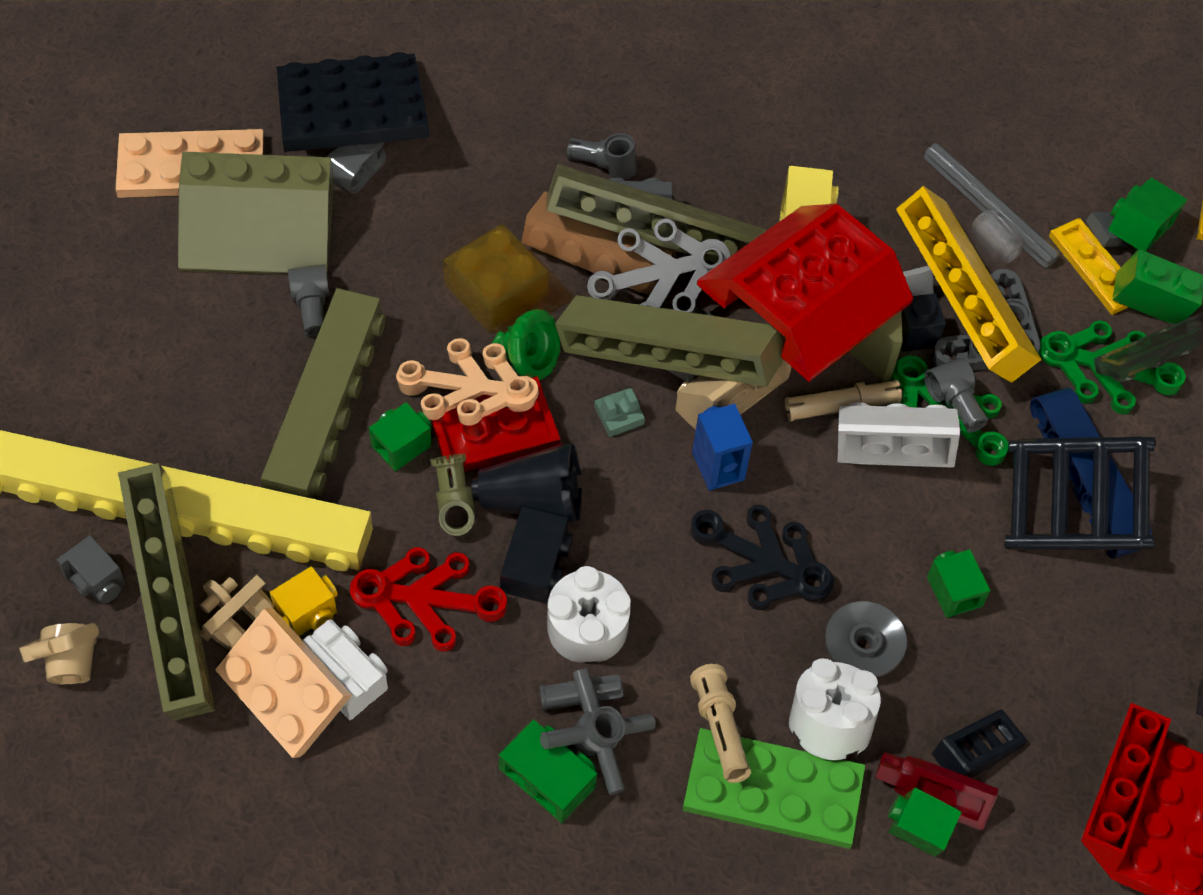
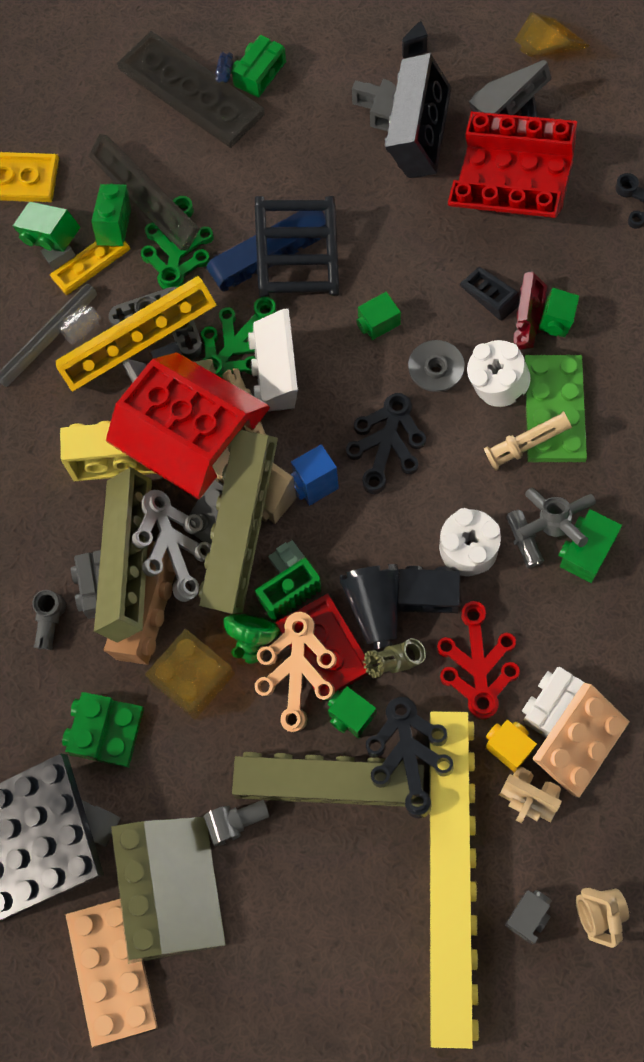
camera: 90 degrees left, 10 degrees up
(166, 592) = (542, 842): olive brick -> none
(326, 473) = (408, 749): none -> black plant
(457, 189) = (103, 729): none -> green plate
(574, 394) = (289, 589): none -> green brick
(954, 385) = (224, 335): dark grey pin -> none

